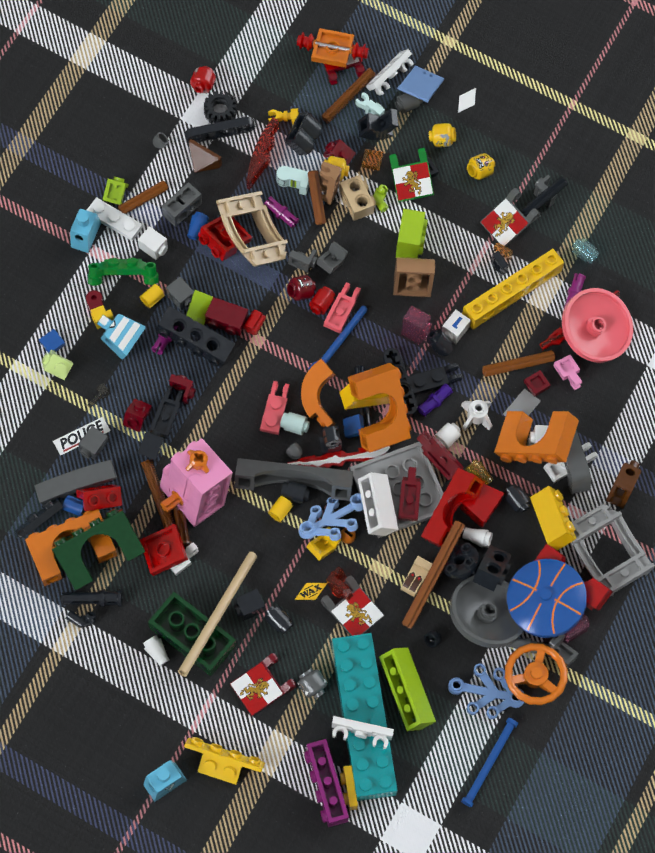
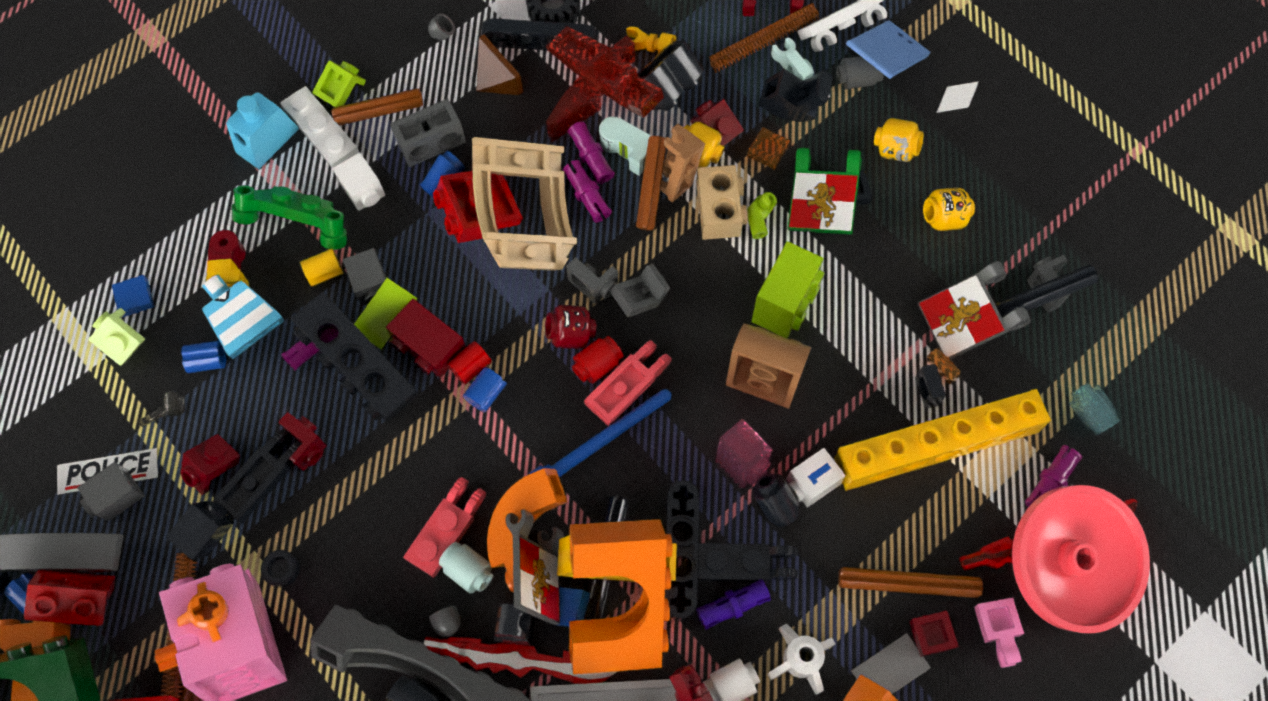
camera: 25 degrees right, 0 degrees up
(108, 361) = (203, 356): none -> blue piece
(268, 333) = (484, 389): none -> blue piece
(271, 143) = (604, 72): none -> clear red slope
(275, 189) = (591, 152): none -> magenta pin
(332, 408) = (535, 569): none -> flag

